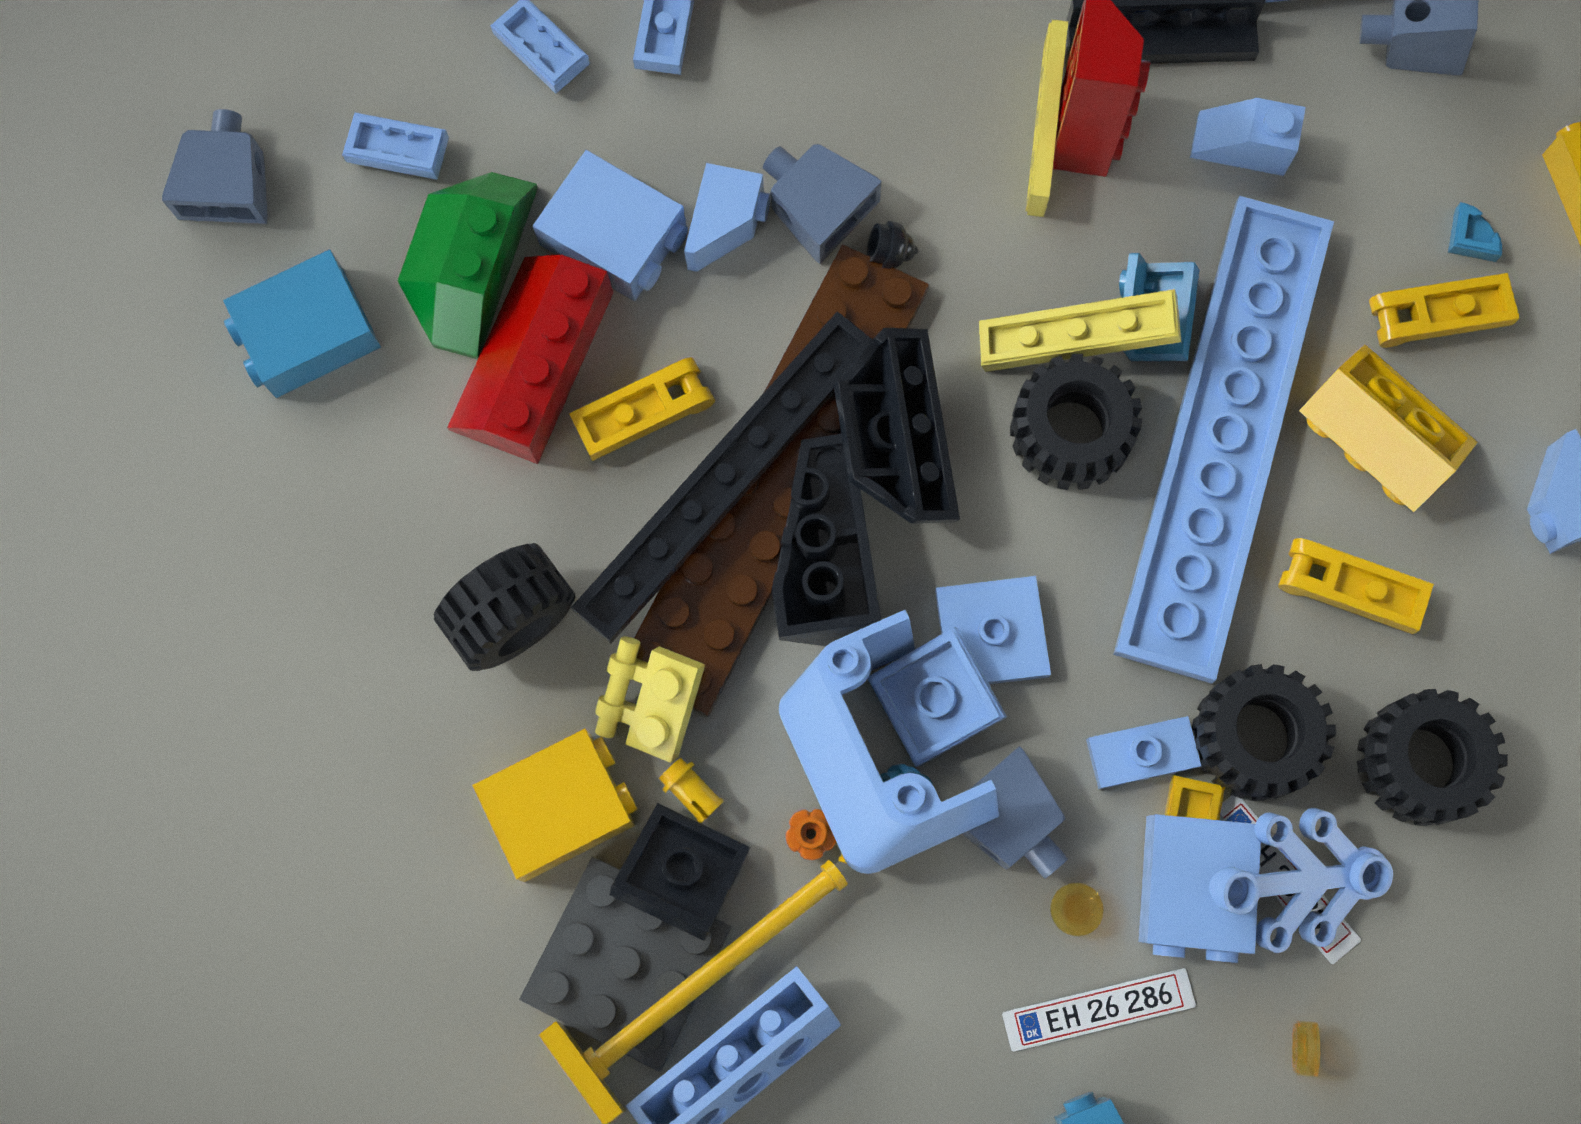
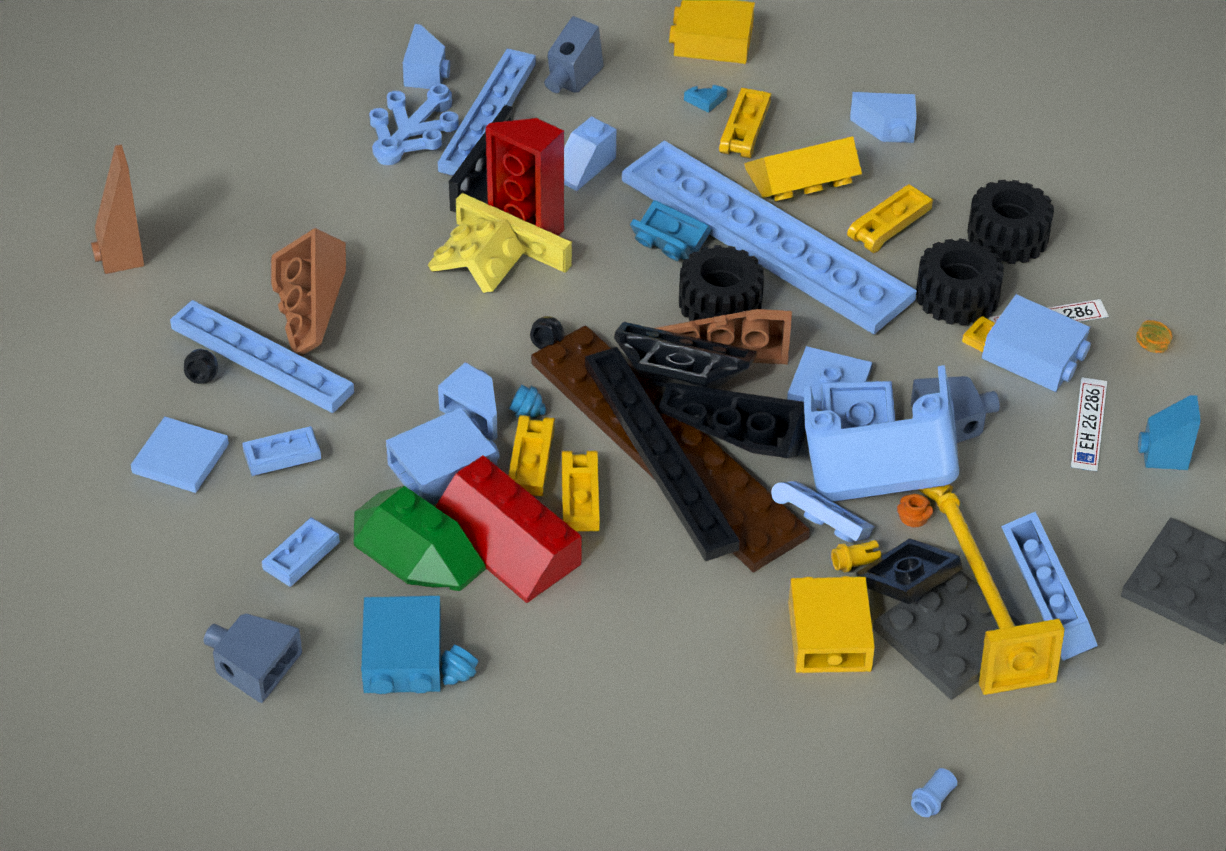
camera: 70 degrees left, 30 degrees down
(307, 399) = (457, 665): none -> dark azure plate
(349, 1035) = (928, 800): none -> light blue pin
(504, 606) = (687, 584): black tyre -> none
(663, 703) = (792, 540): light yellow plate -> none
(672, 324) = (532, 453): none -> yellow plate
(742, 718) = (822, 510): none -> light blue plate
(756, 280) = (527, 402): none -> dark azure plate
(820, 196) = (496, 349): sand blue torso -> none
(987, 96) = (484, 248): none -> light yellow bracket
(1007, 489) = (753, 330): none -> nougat wedge
(1076, 909) = (1024, 405): clear yellow plate -> none
(1080, 329) = (664, 264): light yellow tile -> none
(1143, 752) = (942, 343): light blue plate -> none
(1361, 875) = (1062, 278): light blue plant -> none

